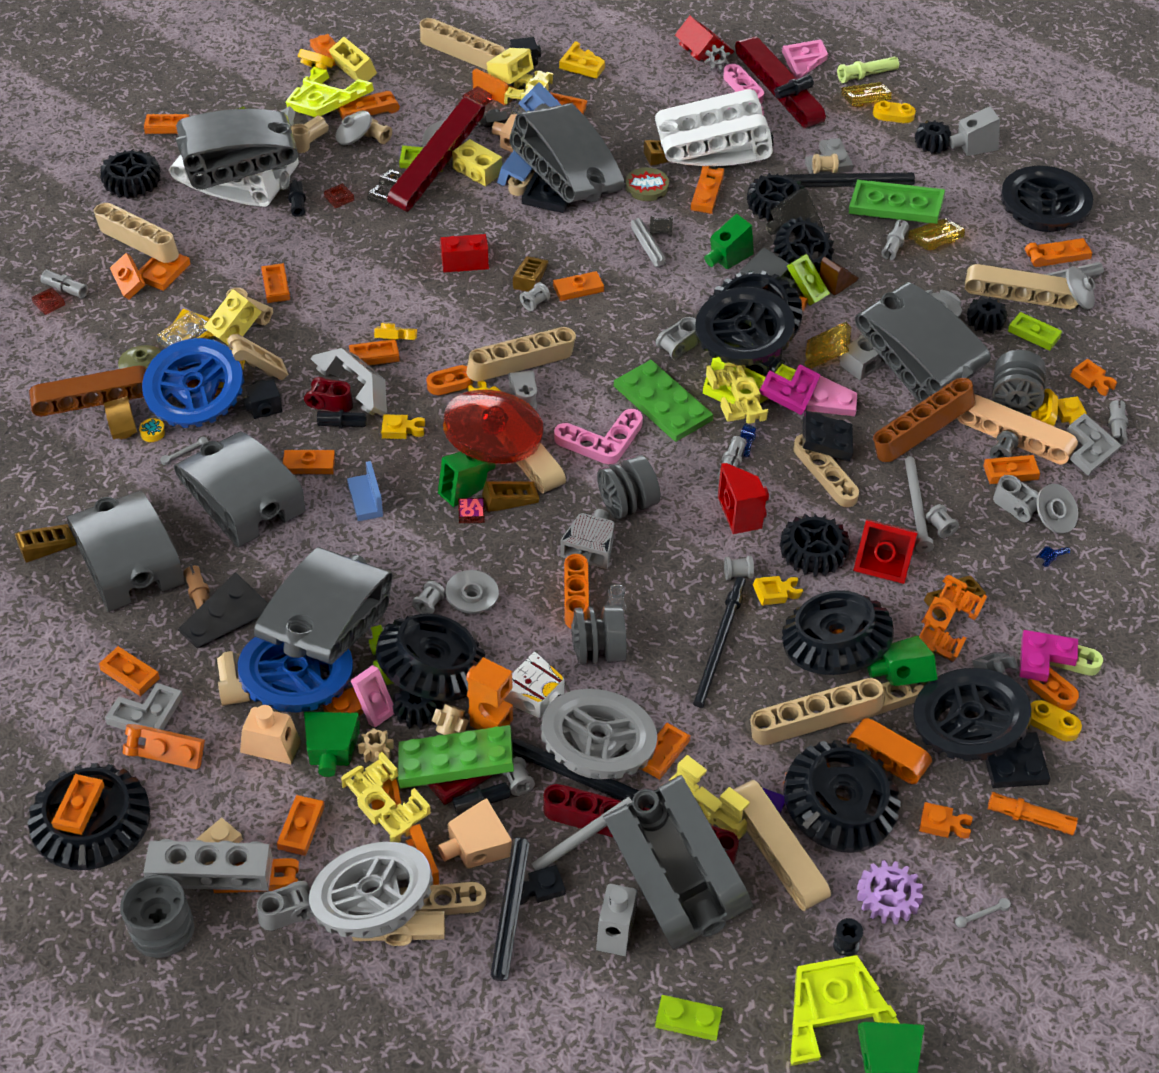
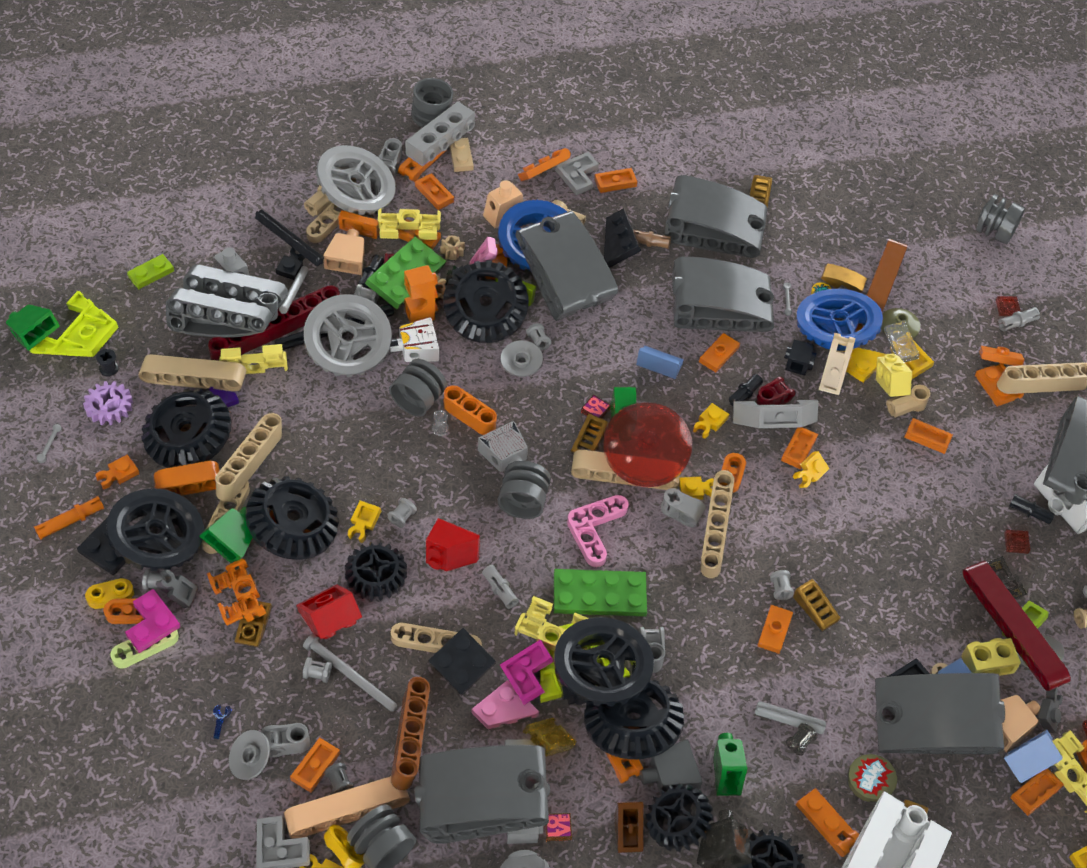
camera: 125 degrees right, 5 degrees up
(78, 804) = (532, 107): orange plate -> none
(124, 804) = (548, 131): black gear -> none
(331, 739) = (475, 229): green torso -> none
(464, 253) = (878, 575): red slope -> none
(669, 746) = (311, 374): orange plate -> none
(733, 602) = (380, 491): black bar -> none
(748, 433) = (512, 618): clear blue hand -> none
(808, 279) = (638, 787): lime plate -> none

